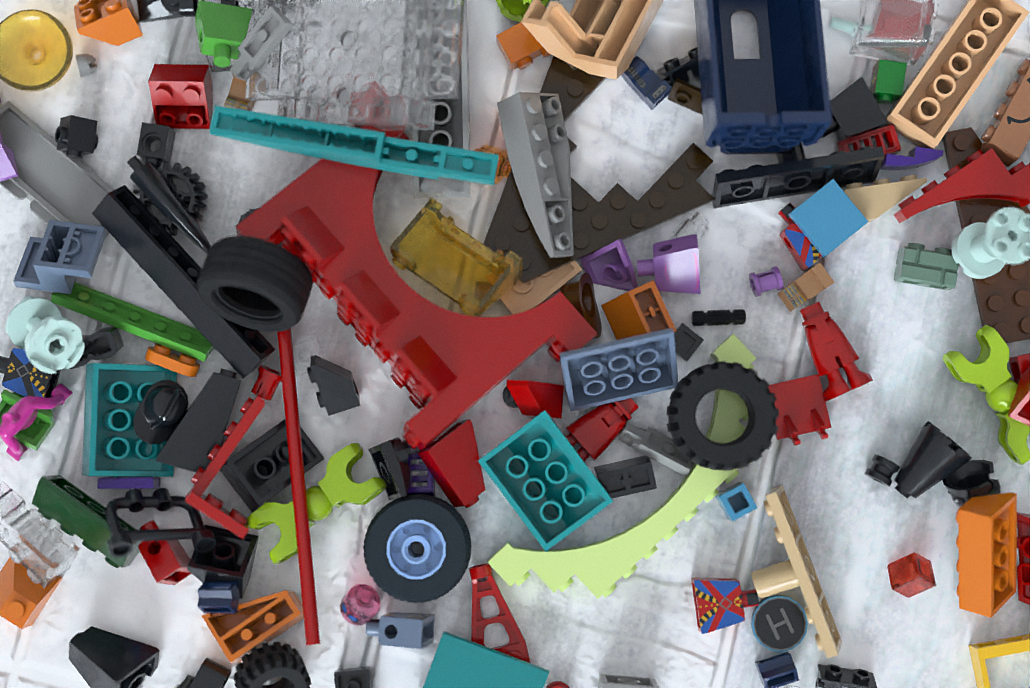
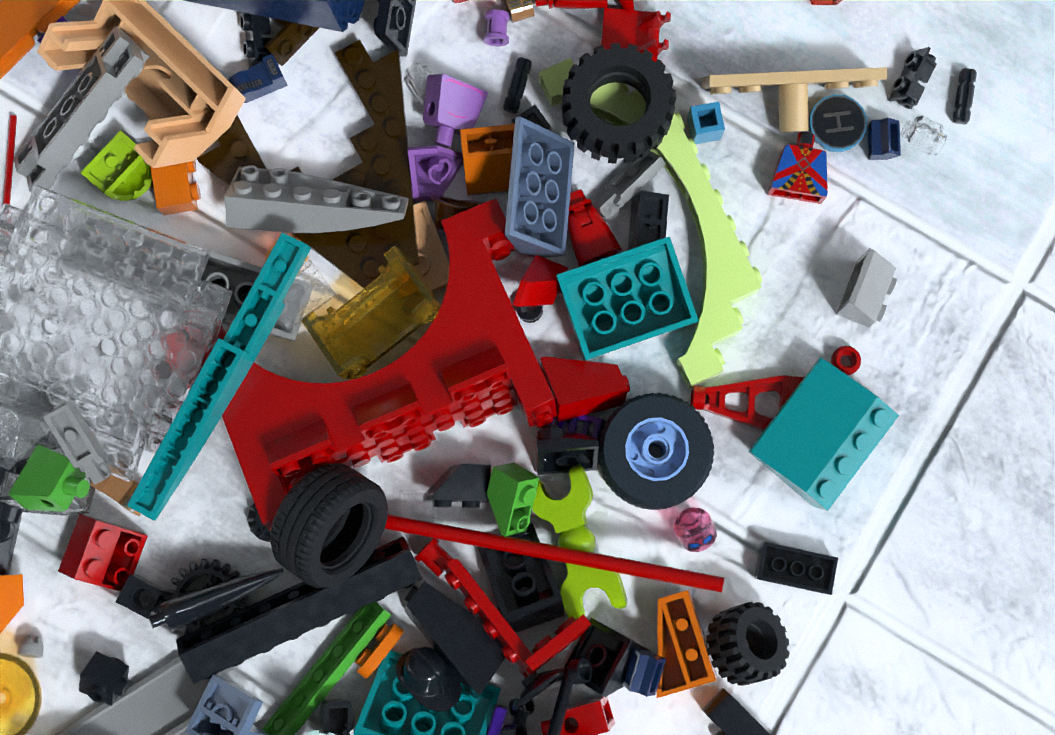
camera: 75 degrees left, 5 degrees down
(176, 506) = (534, 686): none -> black dish
(336, 433) = (512, 497): none -> bright green slope
(413, 629) = (734, 481): sand blue torso -> none

